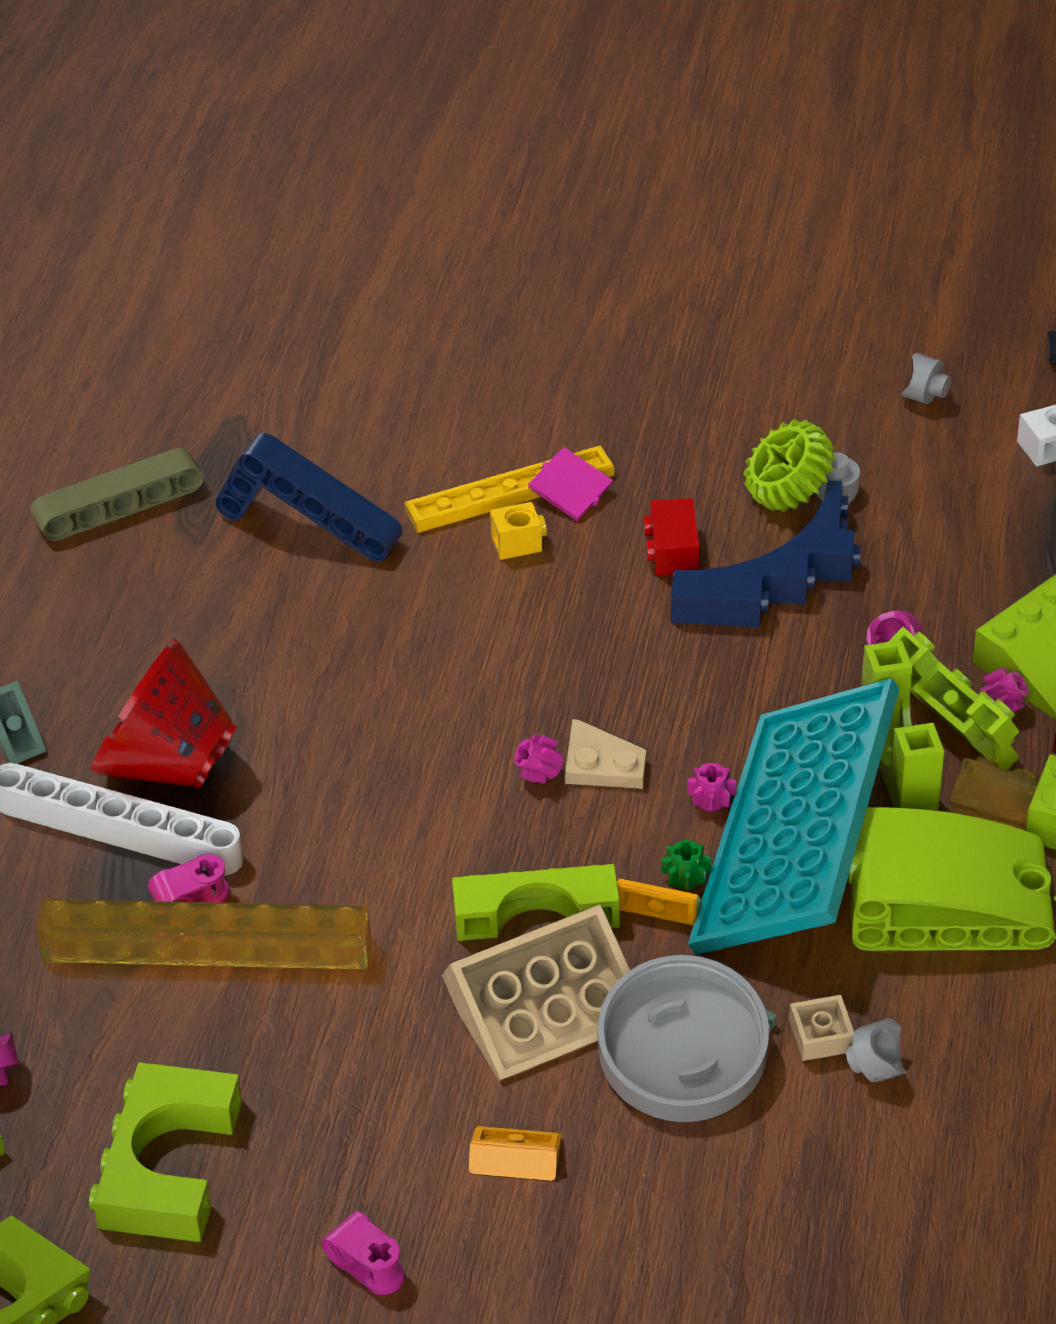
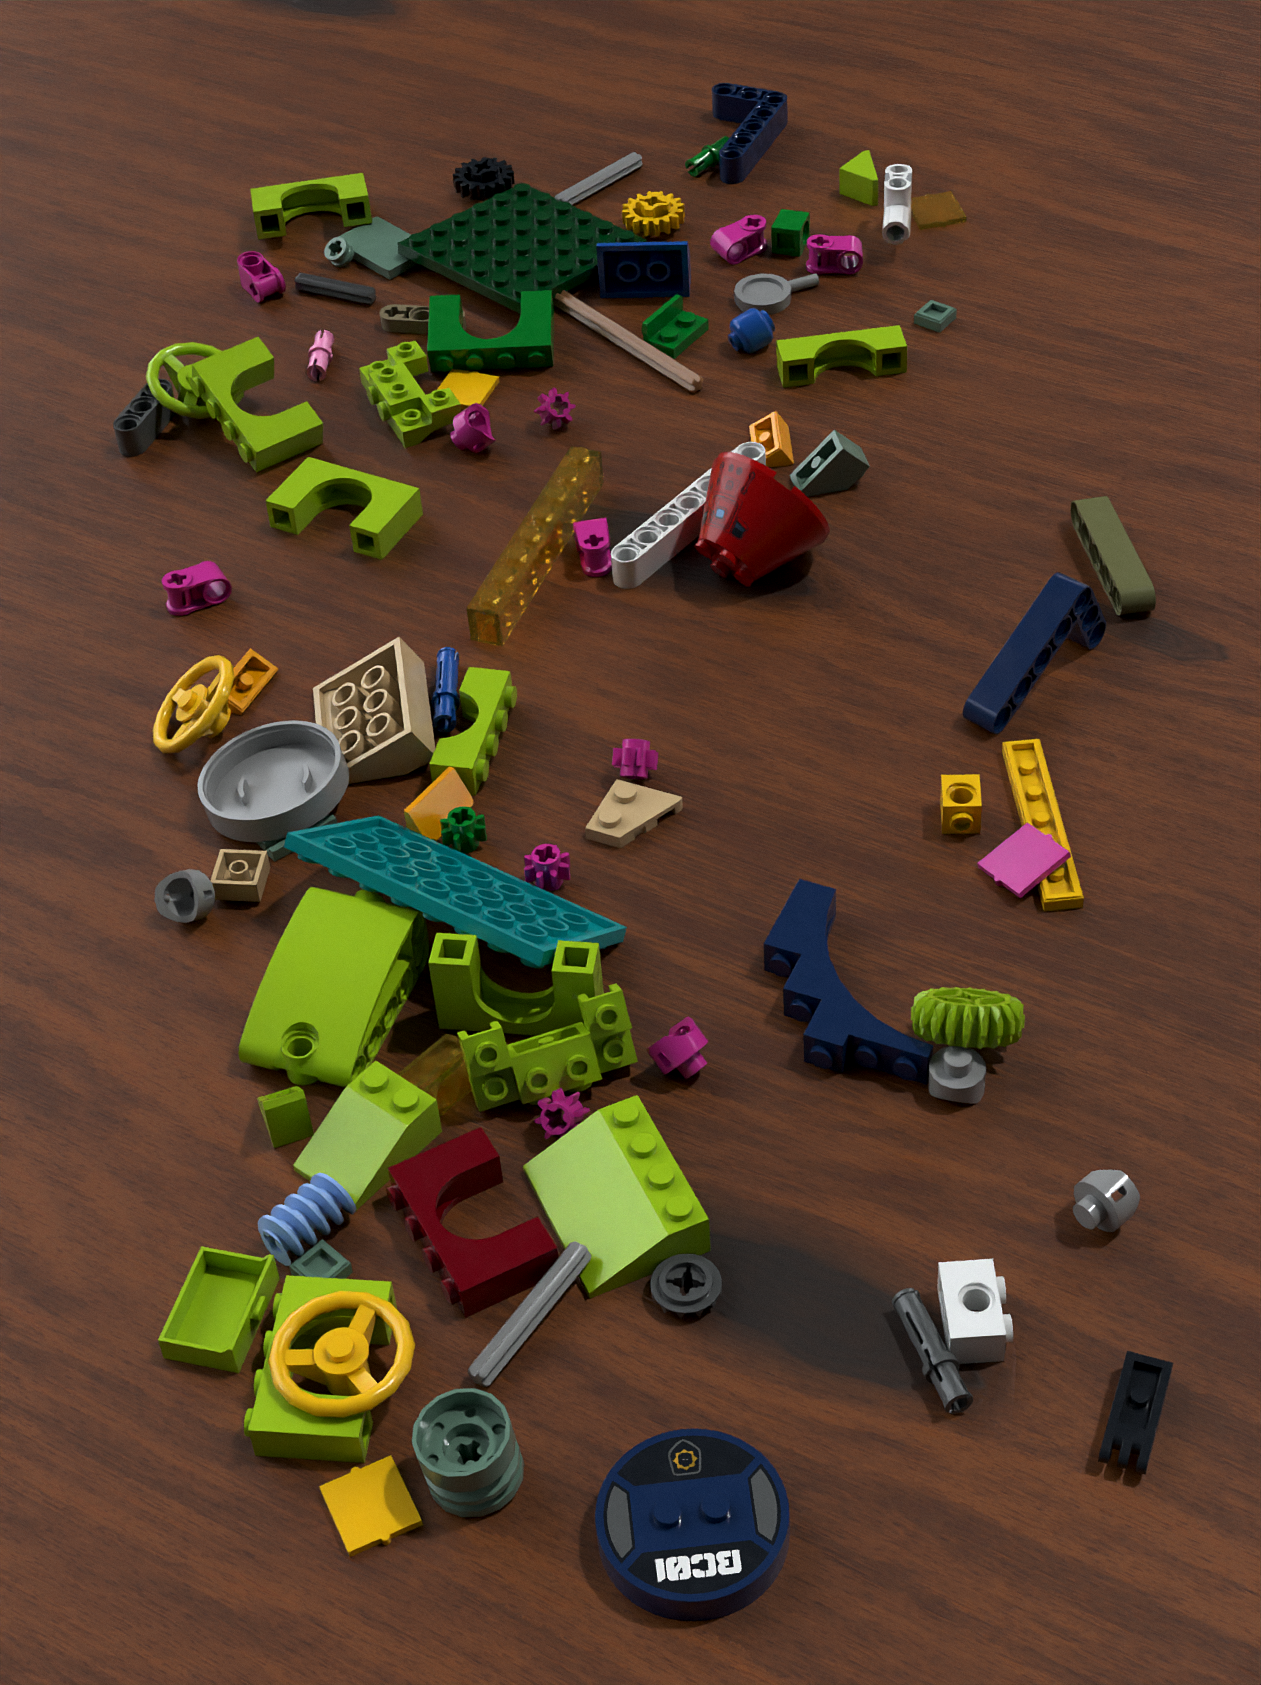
camera: 110 degrees right, 0 degrees up
(426, 963) = (445, 698): none -> blue pin
(600, 1144) = (199, 709): none -> yellow piece
(673, 535) = (907, 918): red brick -> none

